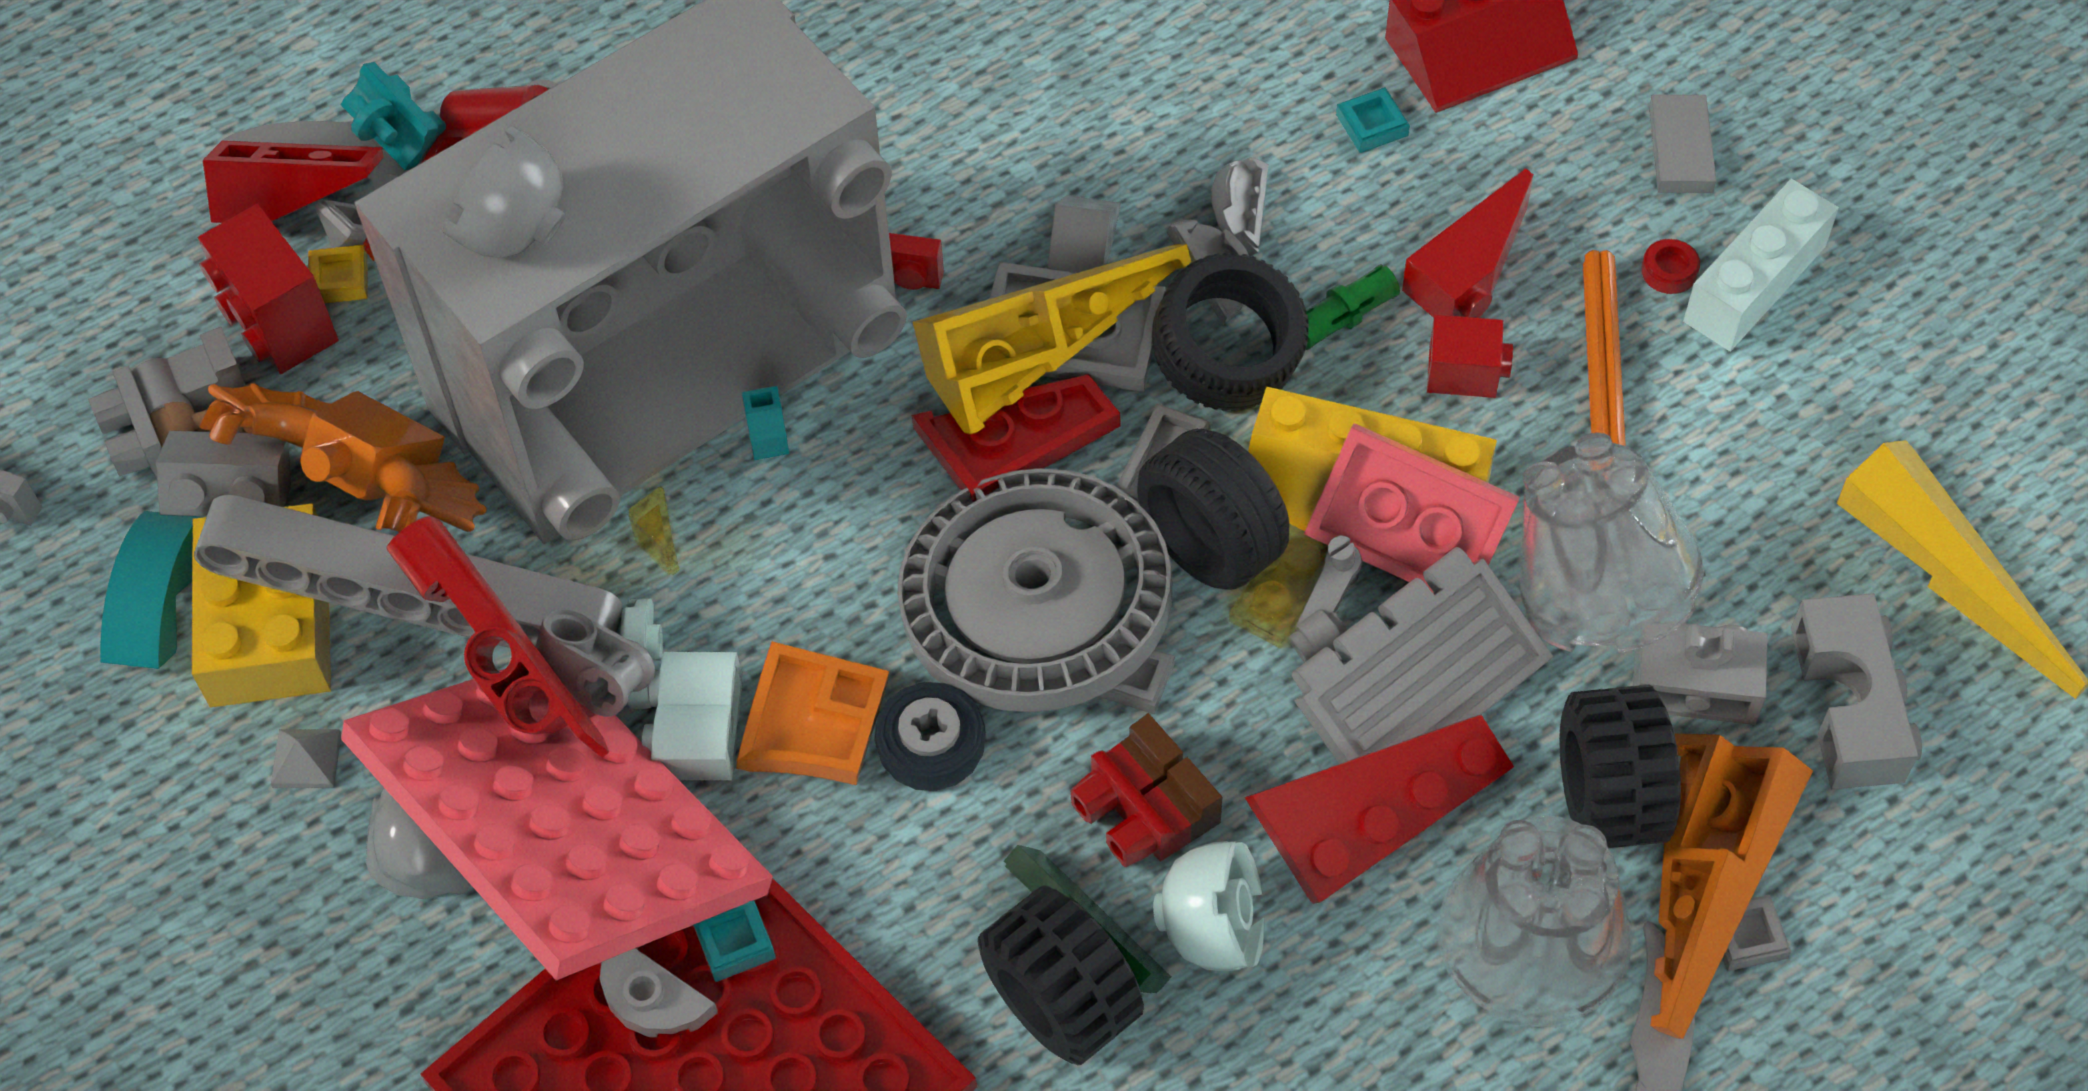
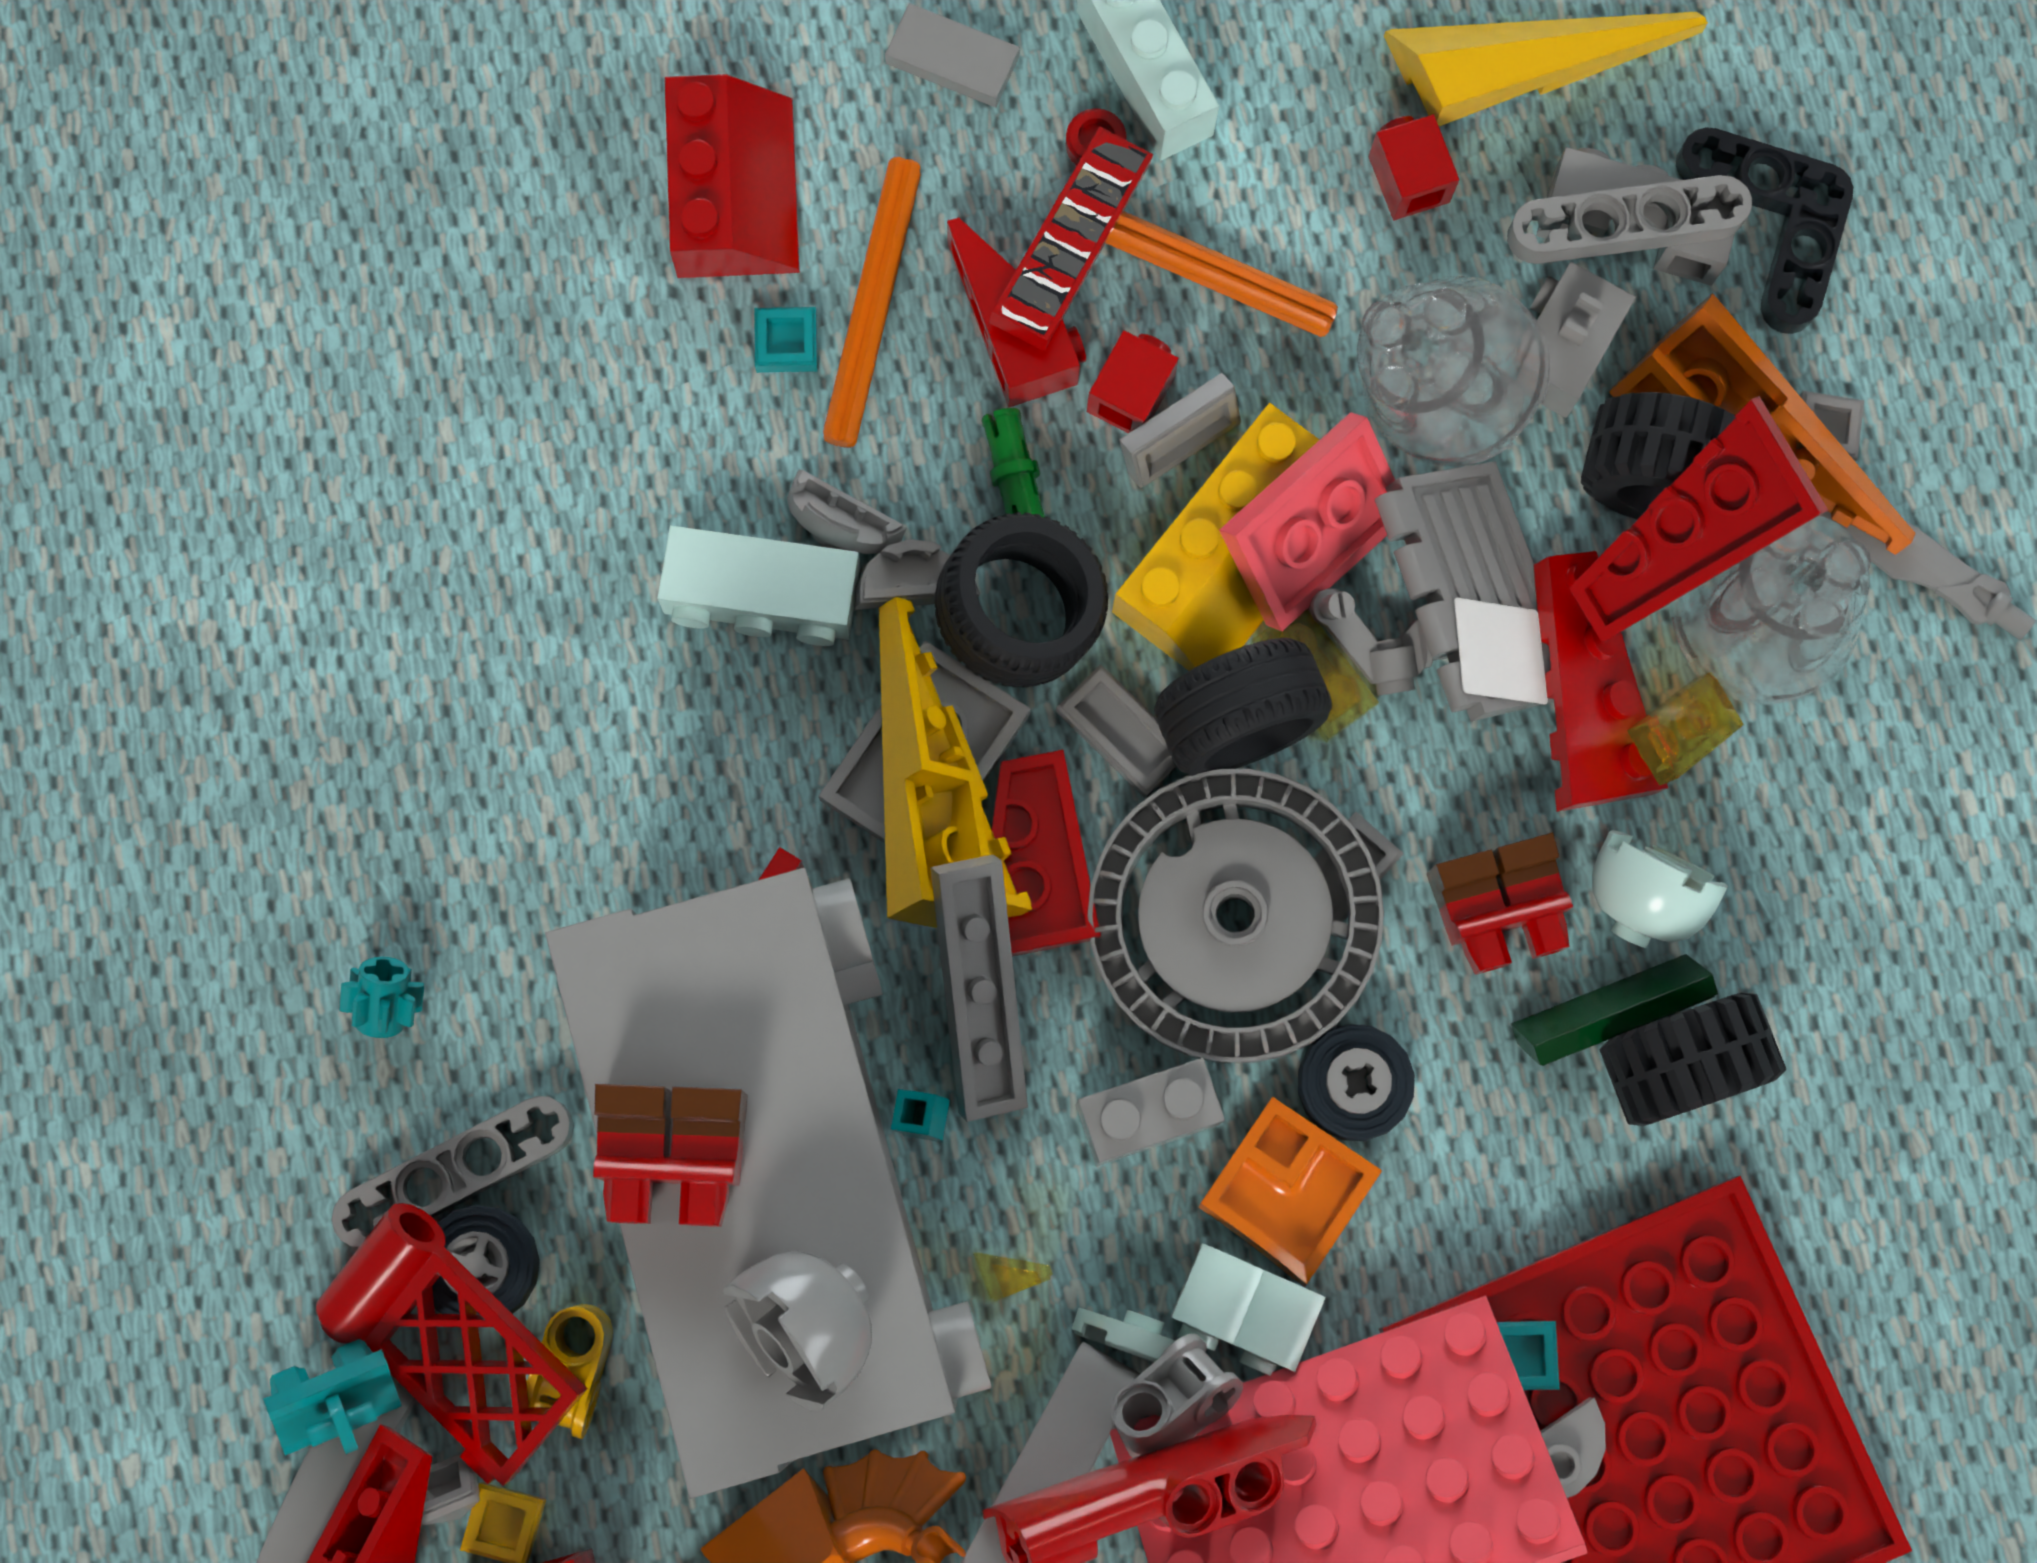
camera: 75 degrees left, 20 degrees up
(622, 80) = (636, 1147): none -> red hips
(835, 580) = (1149, 1112): none -> light grey brick
(883, 406) = (979, 987): none -> light grey plate
(1082, 233) = (814, 695): light grey slope -> none
(1152, 162) = (759, 585): none -> light aqua brick
(1369, 700) = (1500, 651): none -> white sticker
(1379, 883) = (1685, 728): none -> clear yellow plate
(1436, 162) = (872, 302): none -> orange axle
(1441, 399) = (1181, 430): none -> light grey tile
(1555, 774) = (1718, 512): none -> red wing
(1562, 256) = (1071, 239): none -> tile
(1787, 495) = (1413, 166): none -> red brick
(1840, 654) = (1627, 211): none -> light grey beam
(1942, 836) = (1801, 215): none -> black beam

